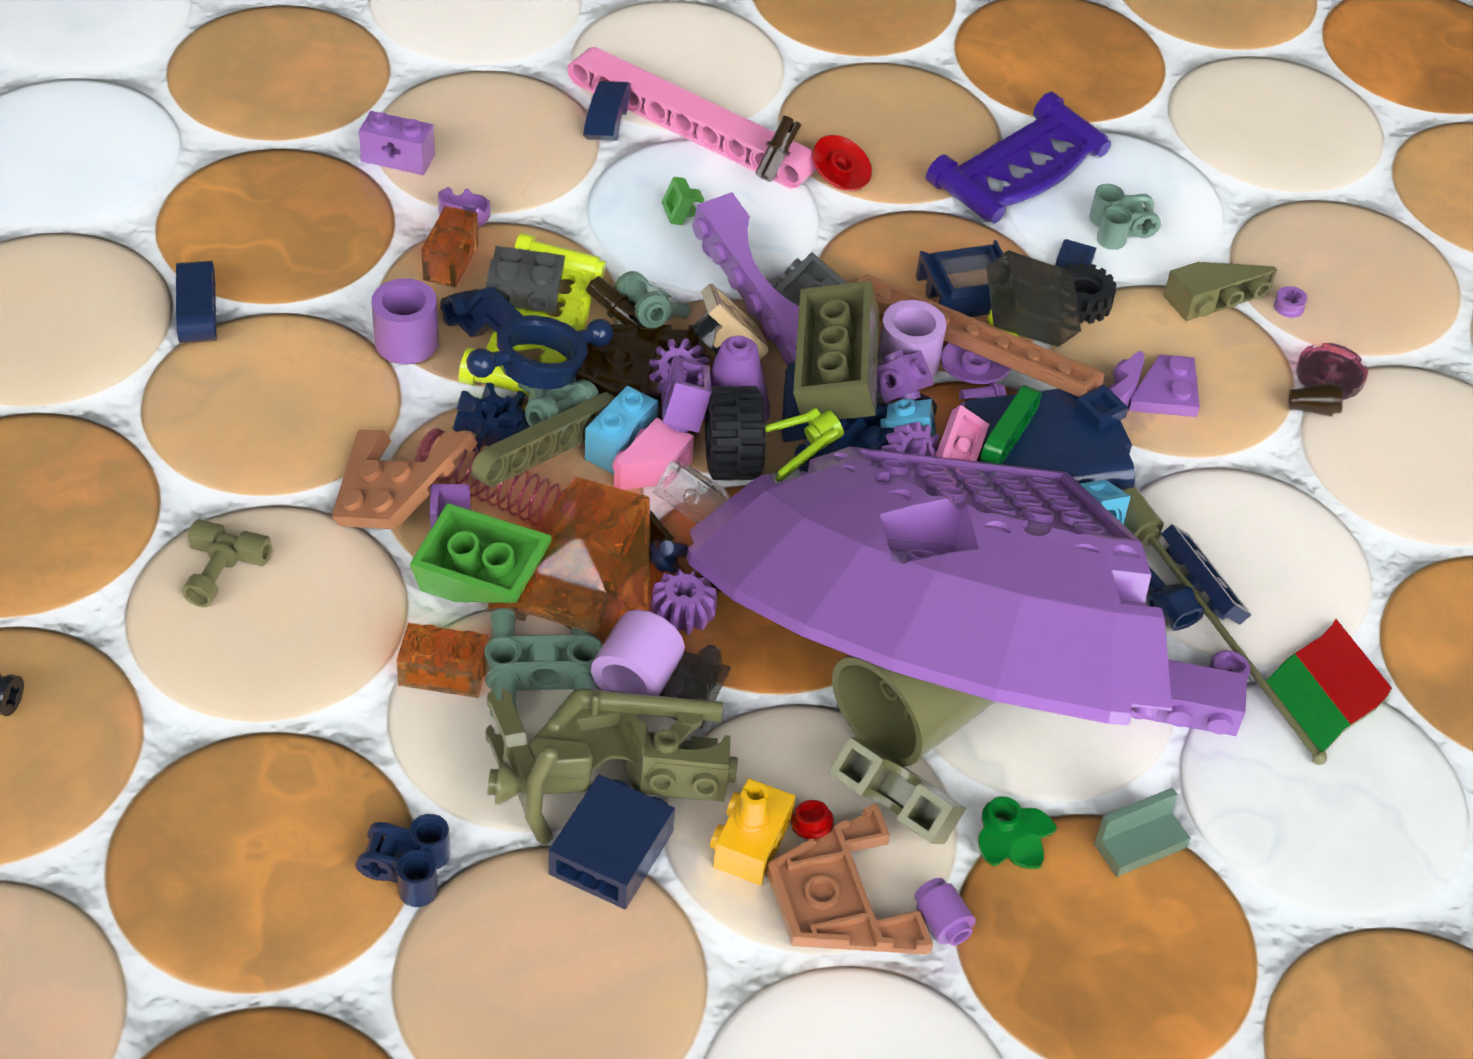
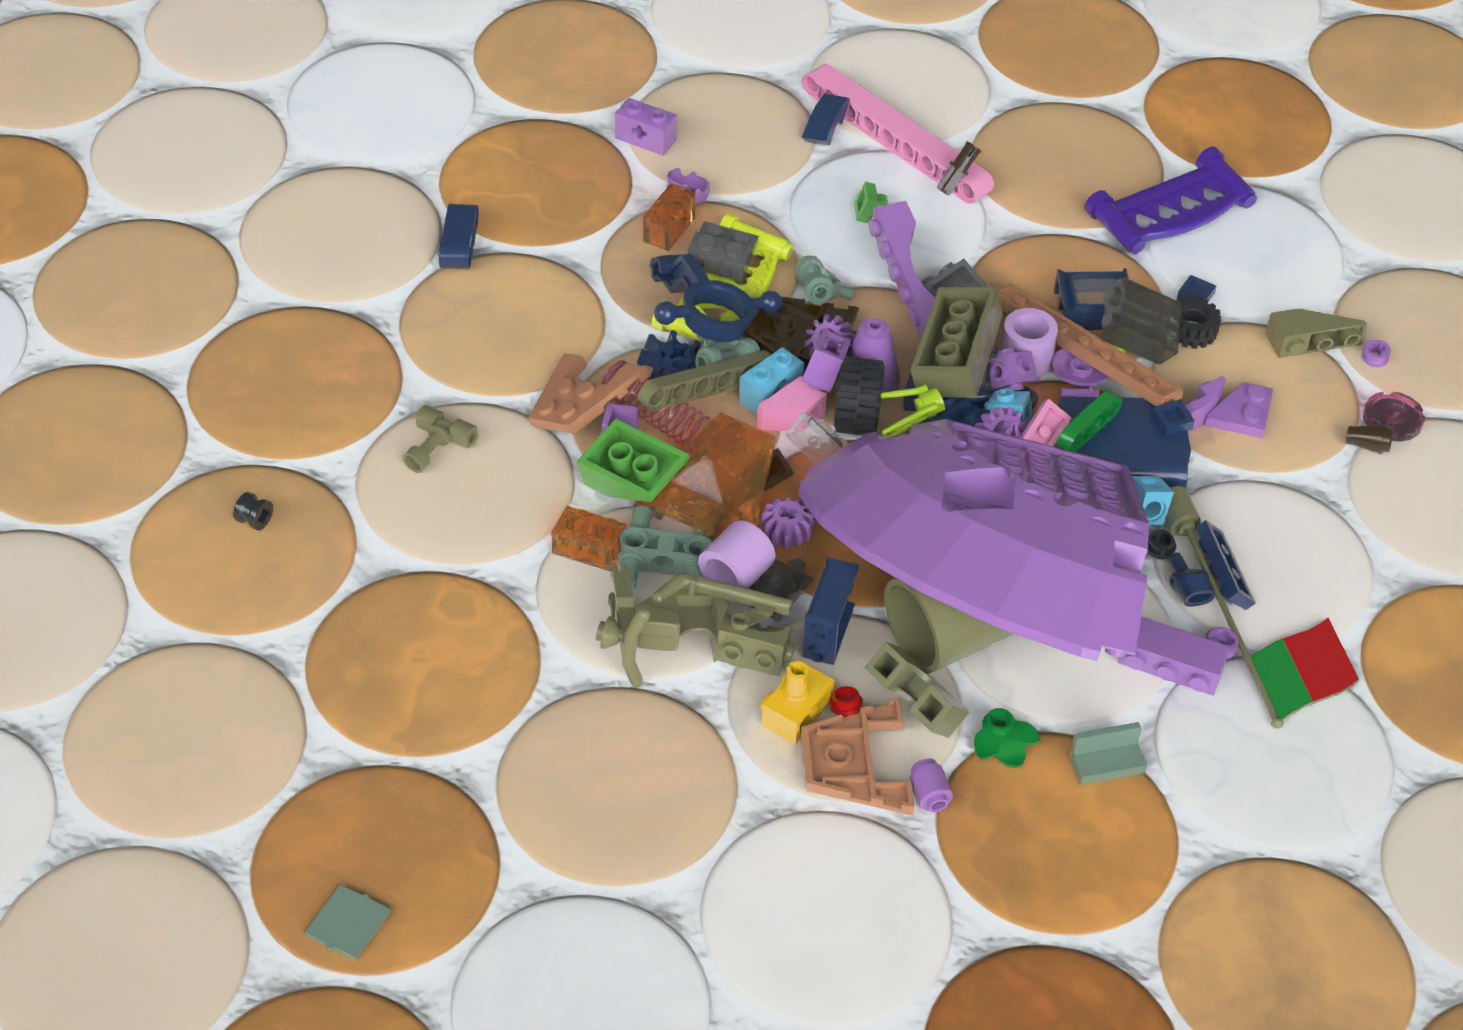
camera: 15 degrees right, 0 degrees up
(405, 321) = (617, 272): medium lavender piece -> none
(407, 856) = (529, 677): dark blue piece -> none
(611, 841) = (685, 691): dark blue brick -> none
(615, 303) = (791, 279): dark brown axle -> none
(666, 553) = (783, 484): dark blue plate -> none
(726, 320) = (878, 303): tan piece -> none
(768, 707) = (829, 612): none -> dark blue window
(841, 162) = (1013, 186): red dish -> none
(1121, 216) = (1246, 261): sand green piece -> none

